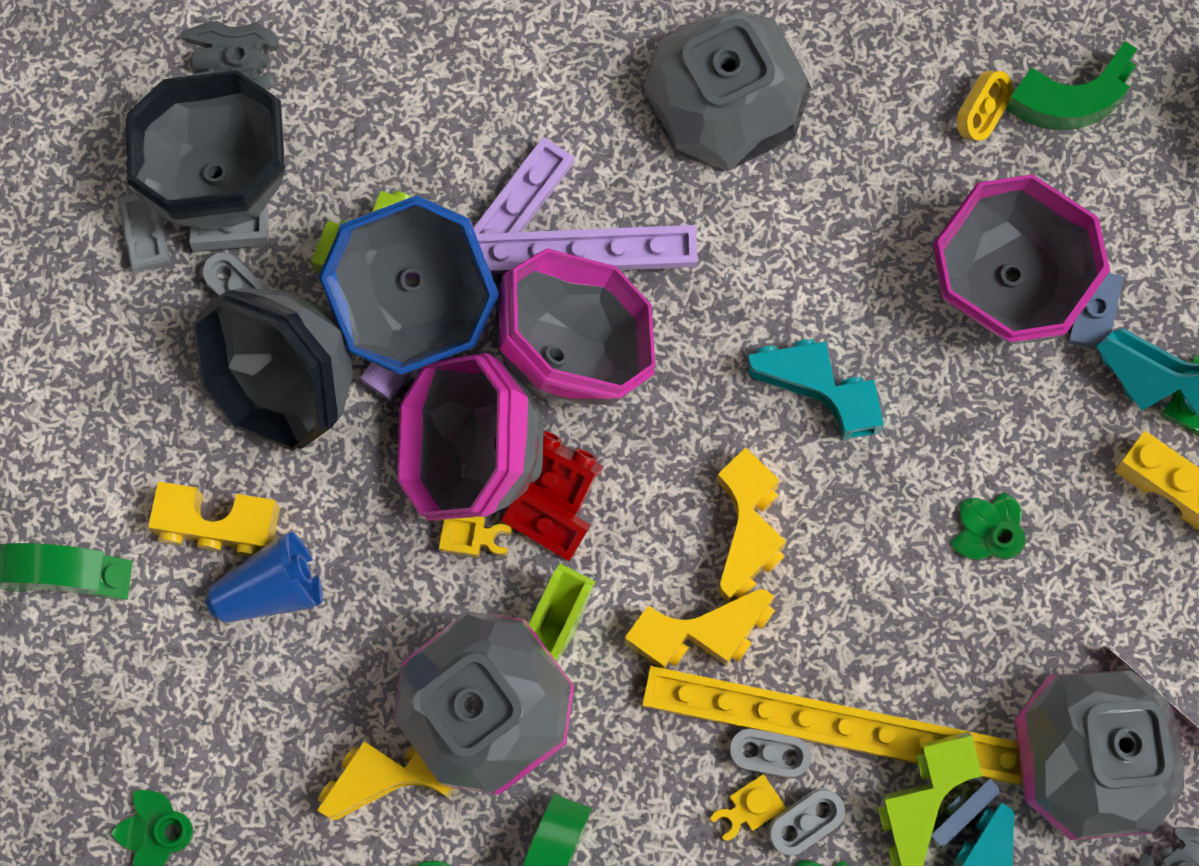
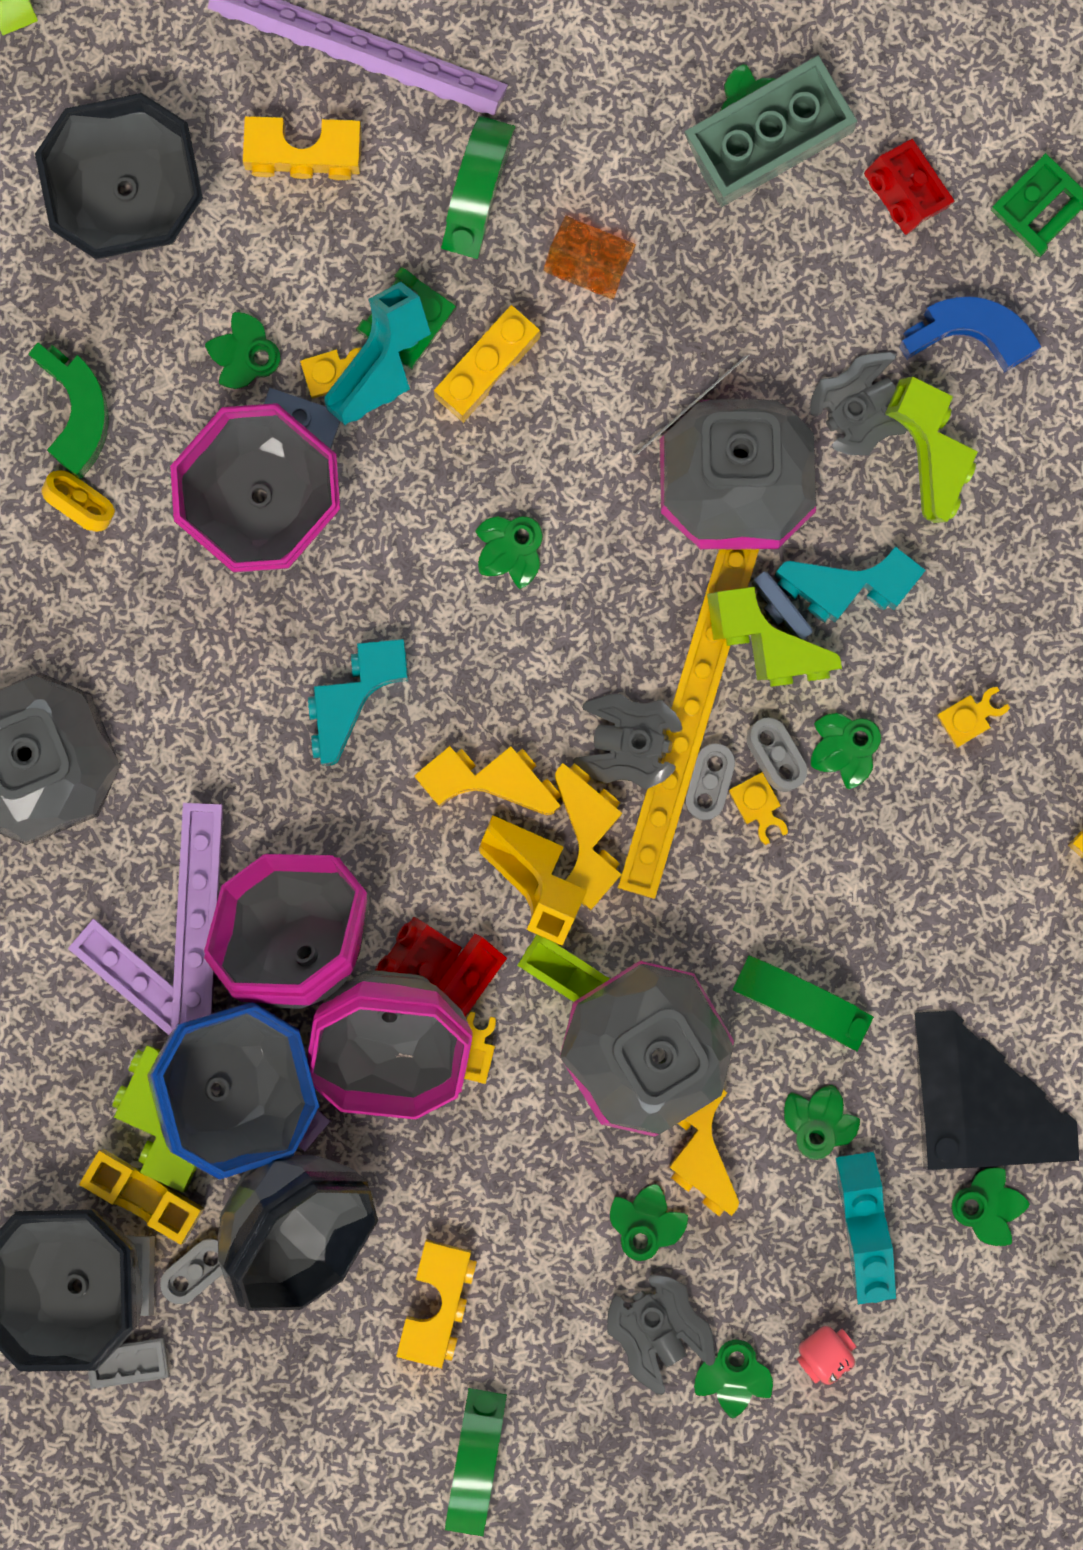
camera: 90 degrees left, 10 degrees up
(201, 745) = (656, 1326): none -> dark grey piece
(267, 583) = (507, 1253): blue cone -> none
(314, 727) = (649, 1217): none -> green plate
(318, 199) = (143, 1196): none -> yellow arch
(663, 574) = (528, 865): none -> yellow arch
(803, 669) = (634, 742): none -> dark grey piece
(1148, 325) = (324, 370): none -> yellow plate
(1155, 244) = (238, 350): none -> green plate

